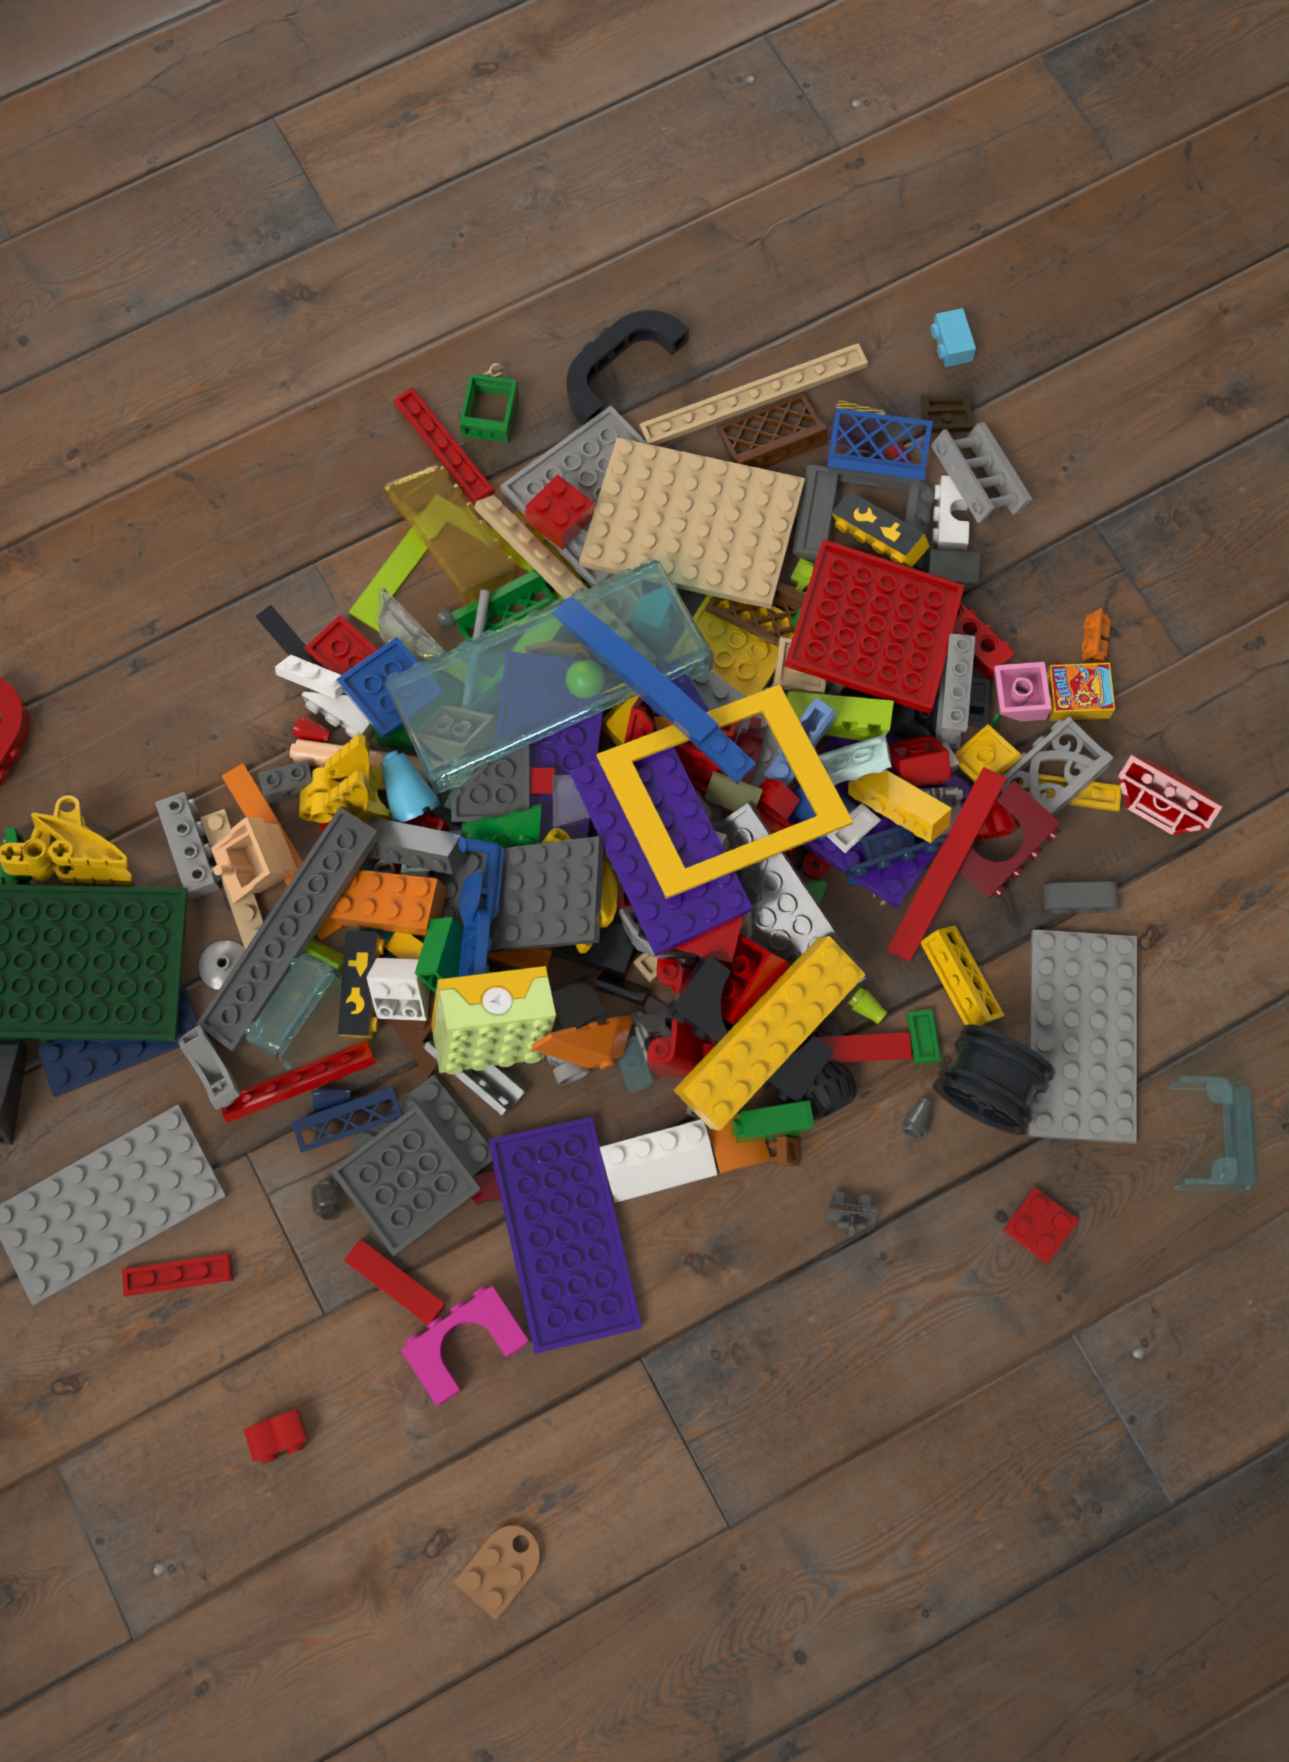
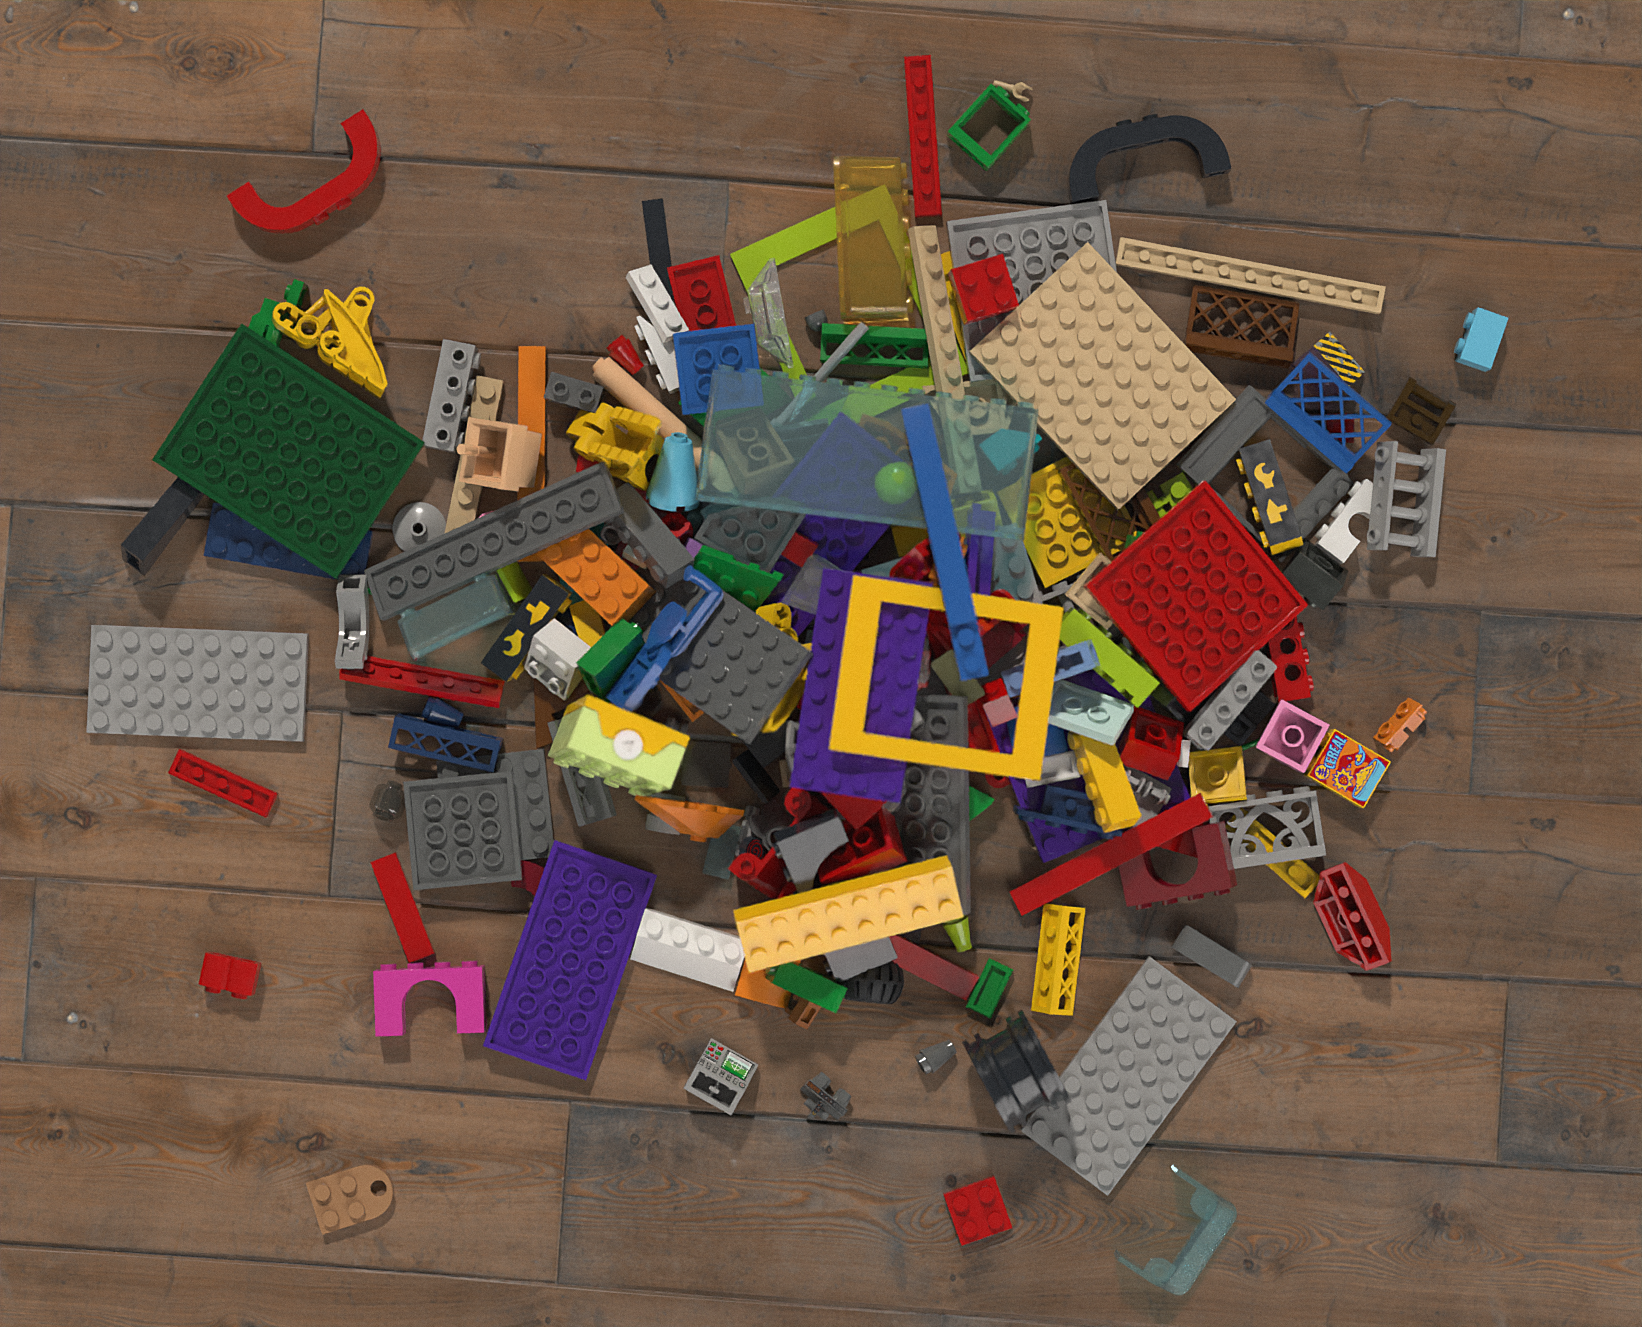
camera: 30 degrees right, 15 degrees up
(753, 1250) = (721, 1076): none -> light grey slope

